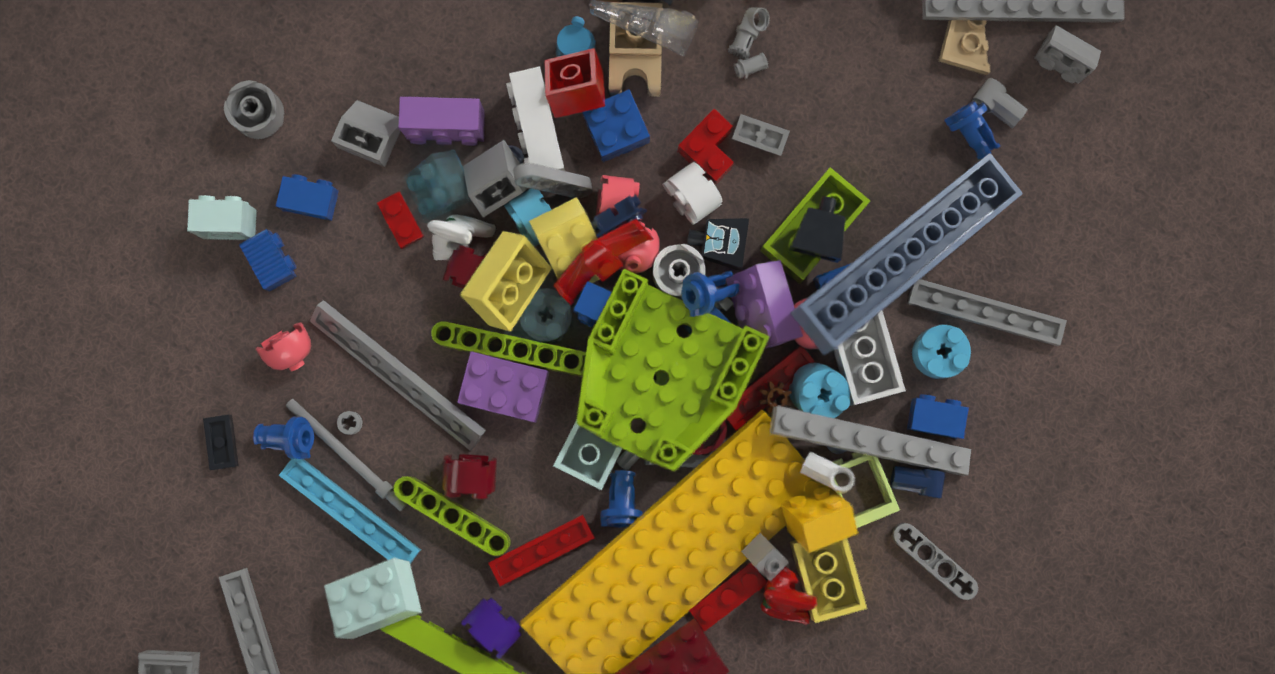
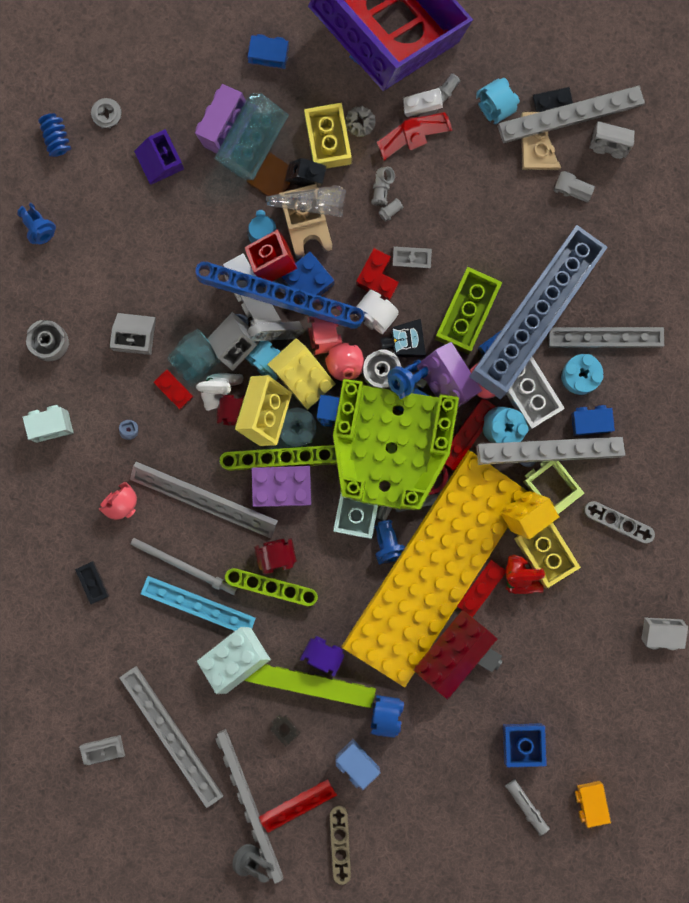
camera: 15 degrees left, 0 degrees up
(268, 259) = (88, 444): blue brick -> none
(294, 437) = (143, 564): blue piece -> none
(306, 197) = (103, 392): blue brick -> none
(326, 255) = (128, 429): none -> sand blue tile
(346, 415) = (183, 547): light grey bush -> none
(442, 120) = (183, 310): medium lavender brick -> none
(541, 550) = (341, 593): red plate -> none
(563, 123) = (269, 297): none -> blue beam
(600, 258) = (325, 376): red plate -> none
(627, 210) = (335, 339): dark blue hinge -> none
(765, 556) = (499, 552): light grey brick -> none
(768, 393) = (469, 438): reddish brown gear -> none
(821, 232) = (474, 314): black torso -> none
(825, 472) = (524, 481): white piece -> none
(923, 481) = (595, 469): dark blue piece -> none
(974, 128) = (560, 210): blue piece -> none

